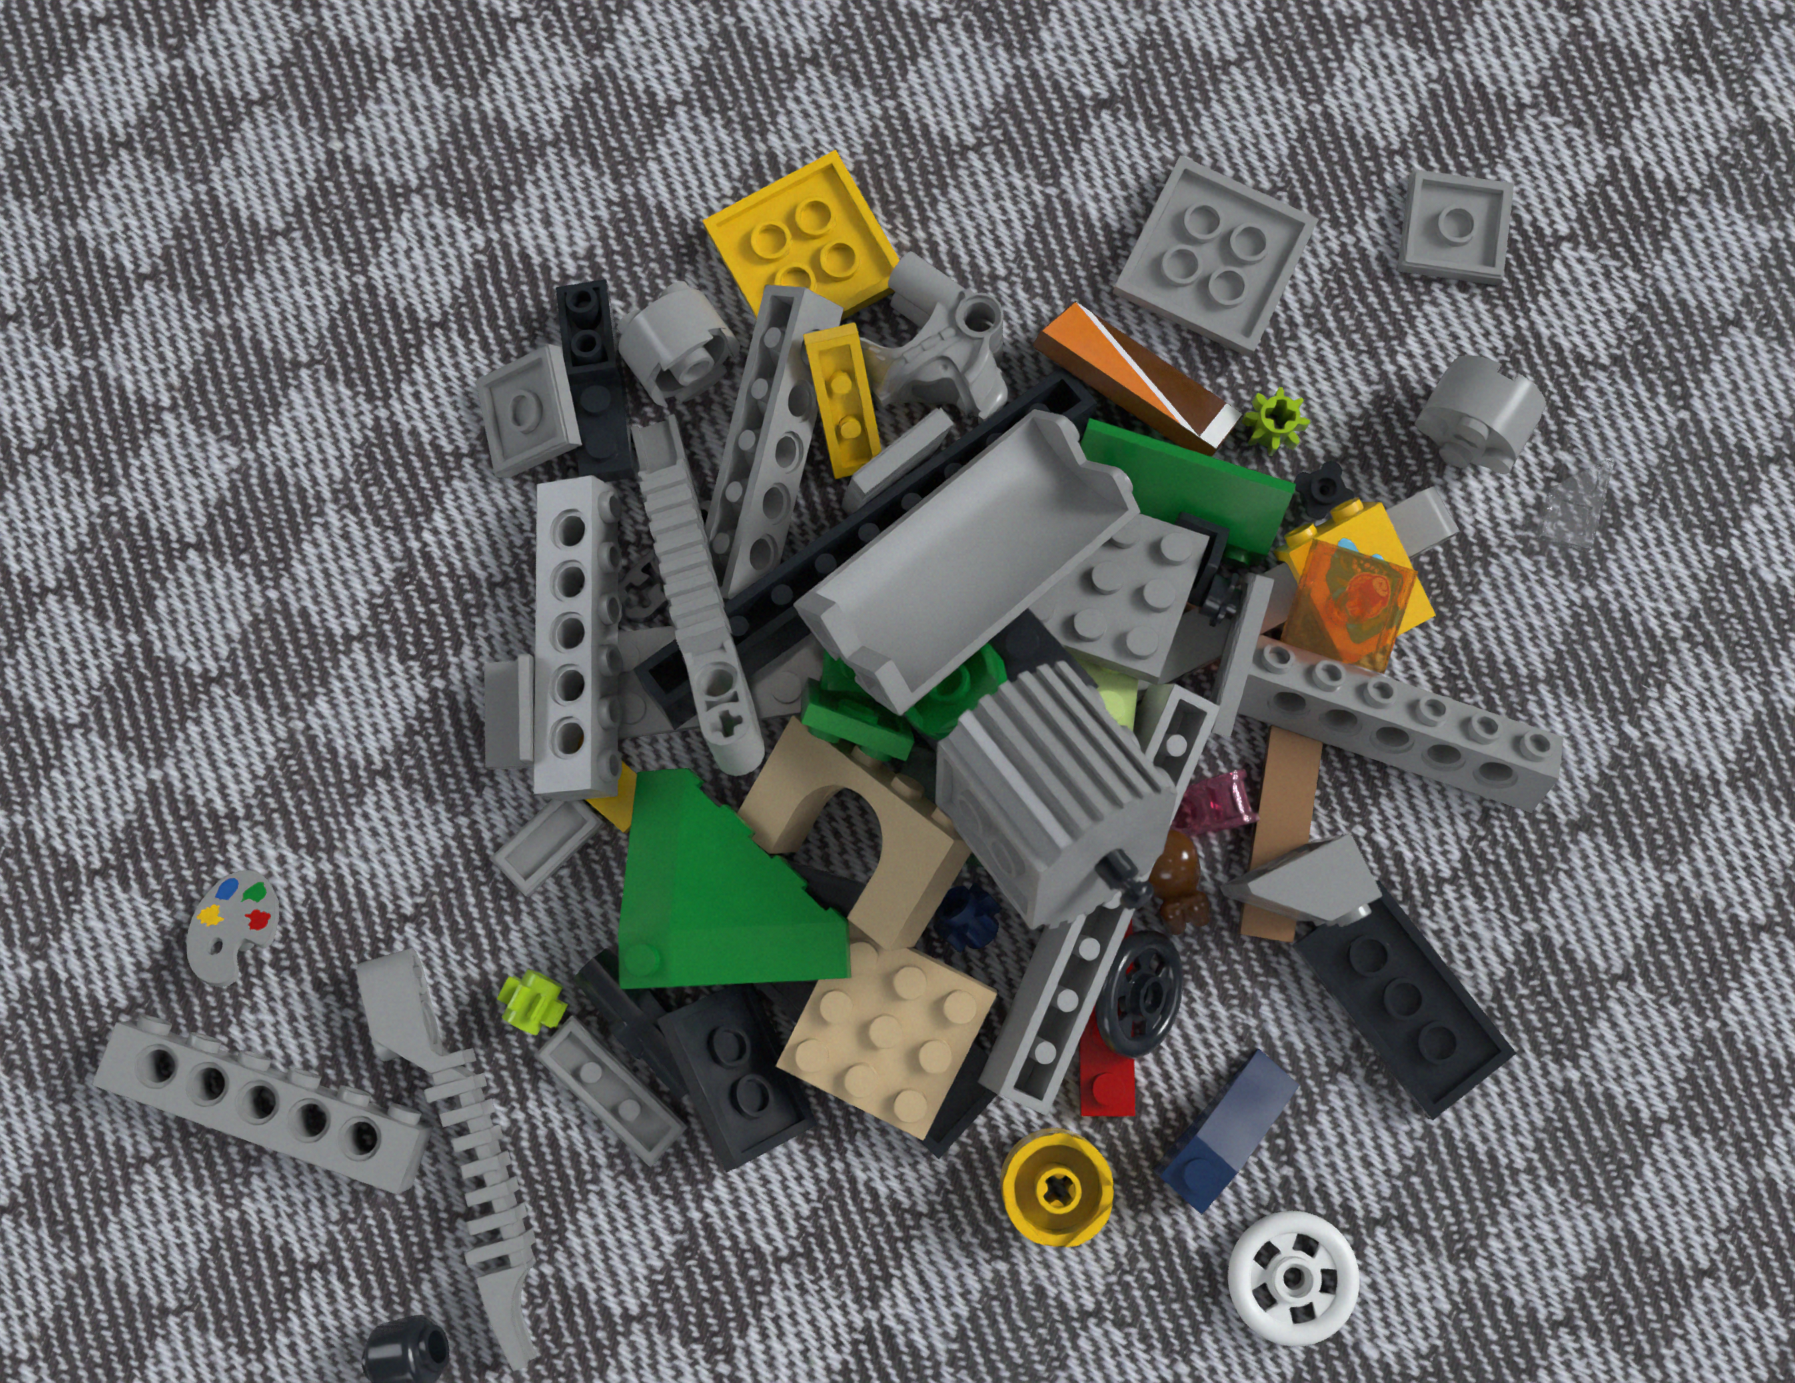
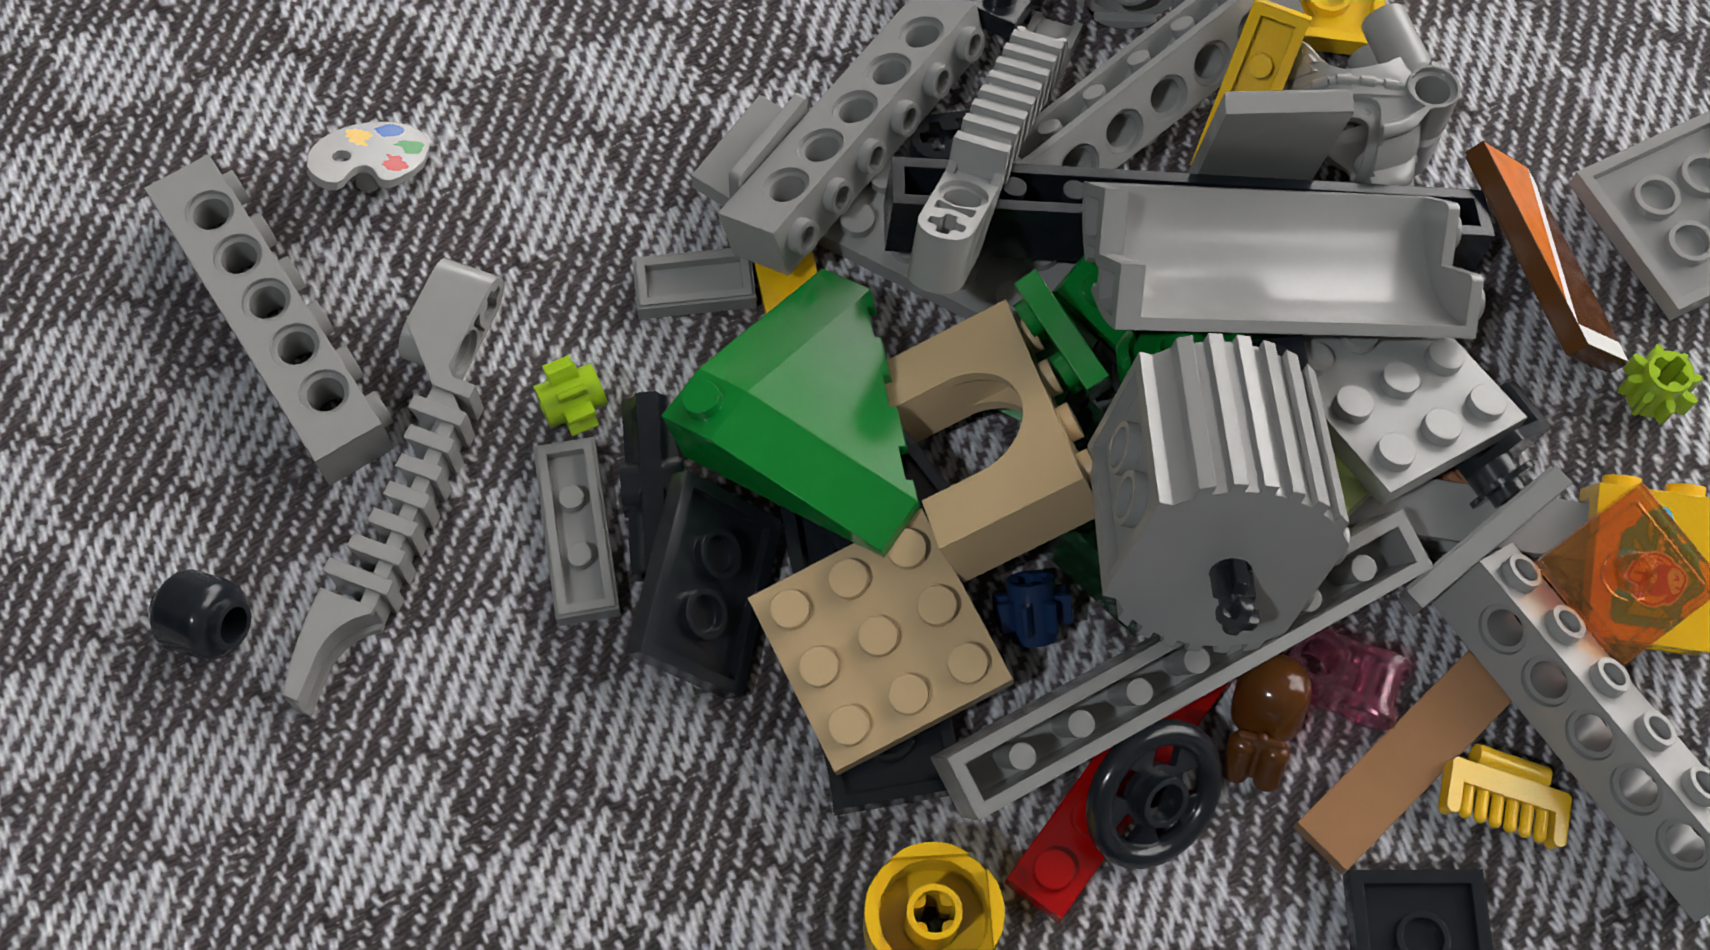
camera: 30 degrees right, 15 degrees down
(1180, 480) = (1572, 390): green slope -> none
(1308, 486) = (1656, 463): black plate -> none
(1313, 883) = (1407, 785): light grey slope -> none
(1357, 798) = (1509, 781): none -> yellow piece

